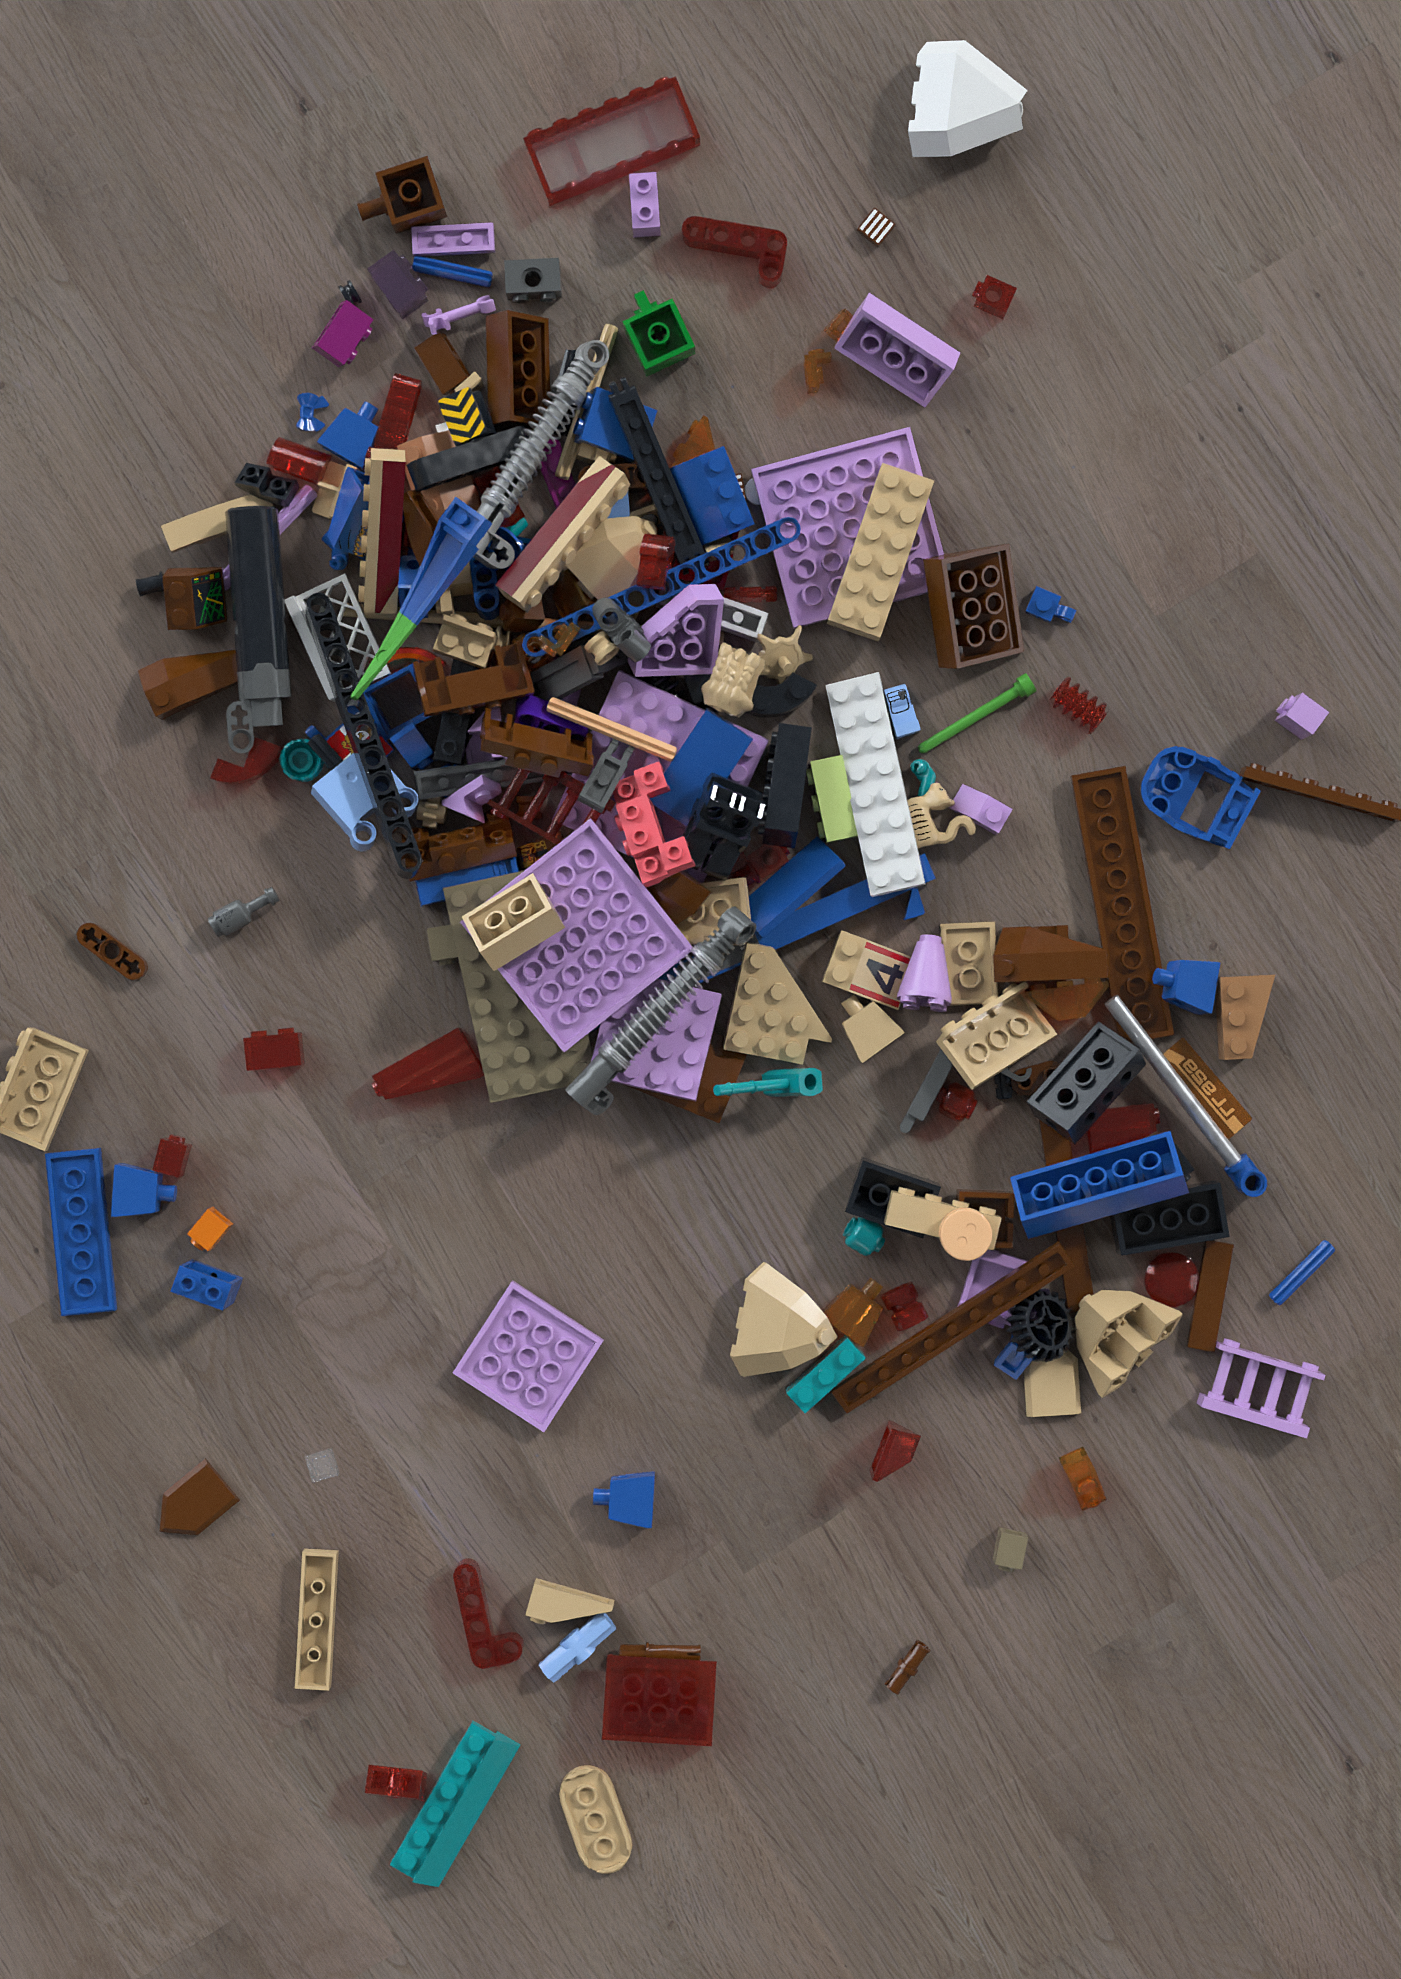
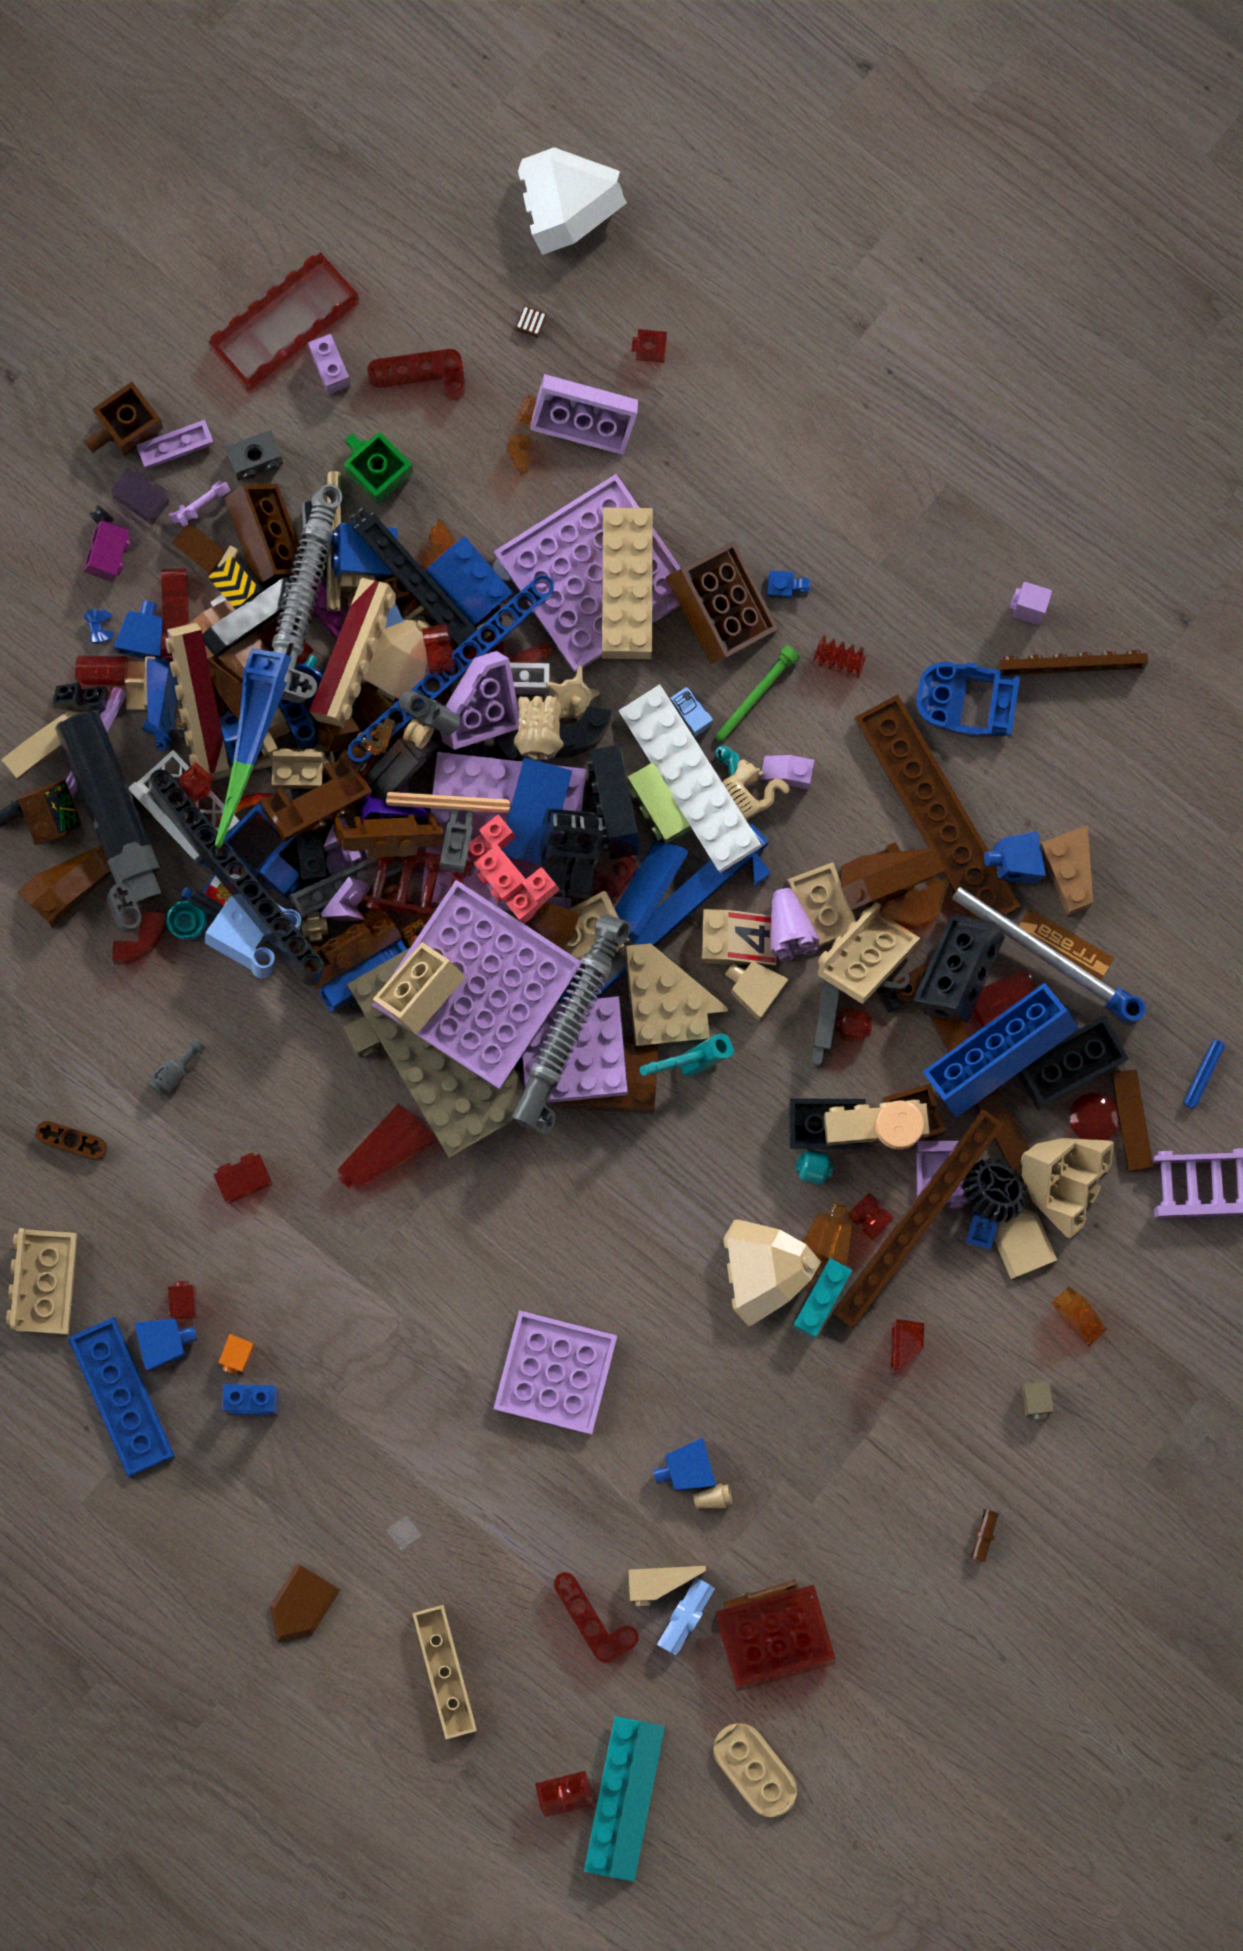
camera: 20 degrees left, 10 degrees down
(354, 620) = (199, 785): none -> clear red brick
(452, 271) = (182, 471): blue axle -> none
(646, 1538) = (714, 1497): none -> tan cone

